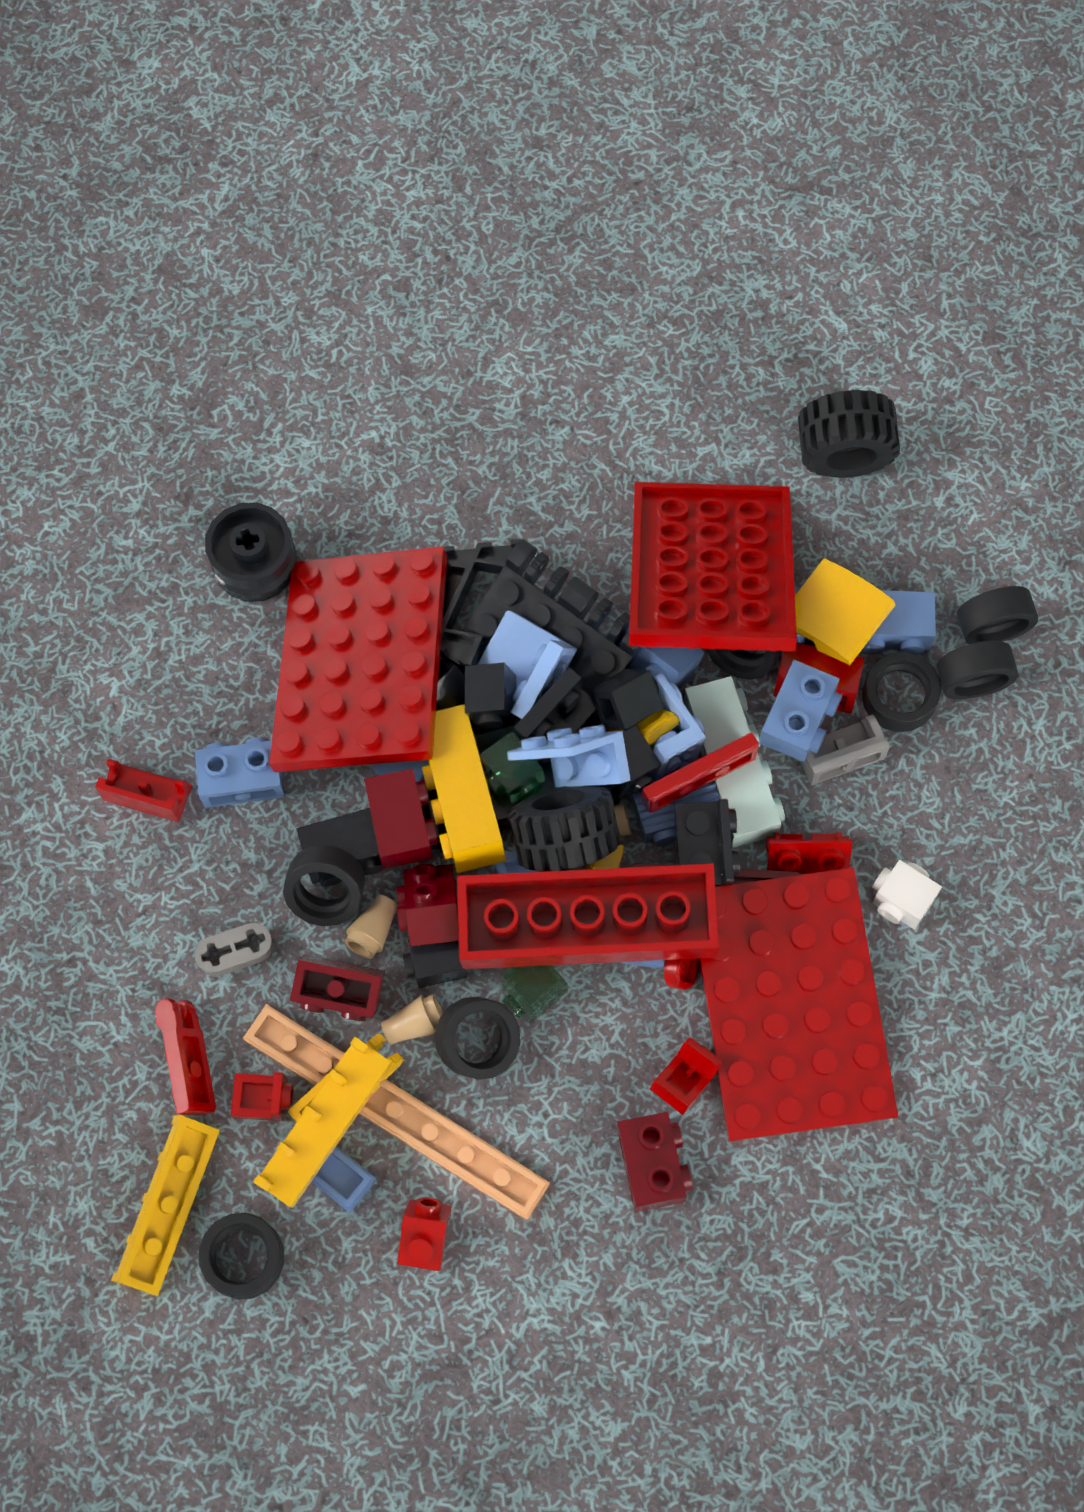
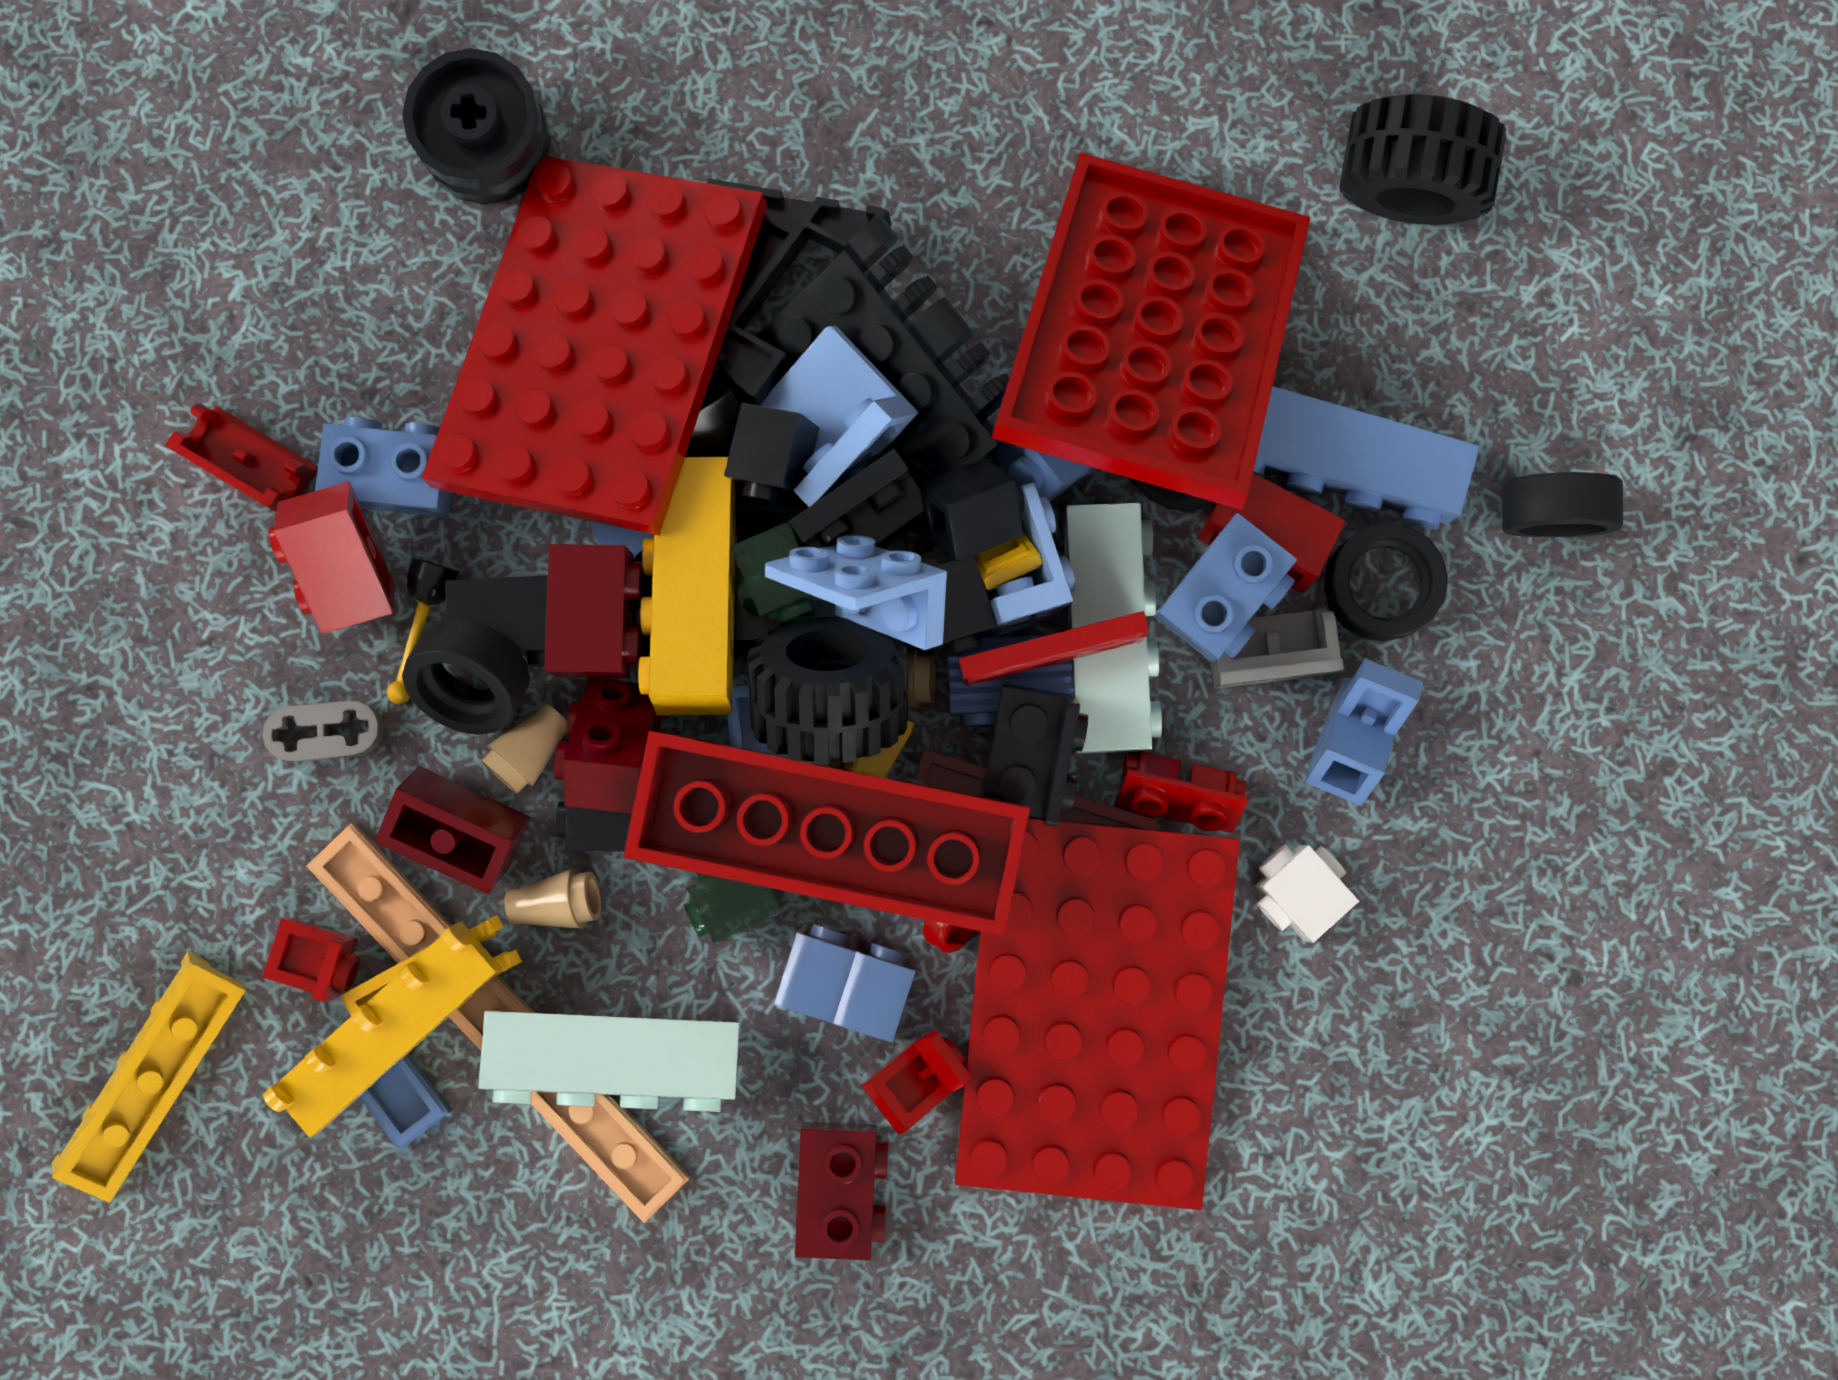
camera: 10 degrees right, 15 degrees up
(185, 1057) = (218, 875): red hinge -> none
(211, 1242) = (188, 1188): black tyre -> none
(221, 831) = (332, 558): none -> brick
(283, 839) = (427, 586): none -> hinge
(424, 1234) = (497, 1206): red bracket -> none
(478, 1108) = (608, 1057): none -> light aqua brick
(507, 1046) = (649, 995): black tyre -> none
(621, 1026) = (845, 984): none -> medium blue brick
(839, 611) = (1328, 444): yellow slope -> none
(912, 782) = (1361, 731): none -> medium blue brick
(977, 669) = (1507, 582): black tyre -> none

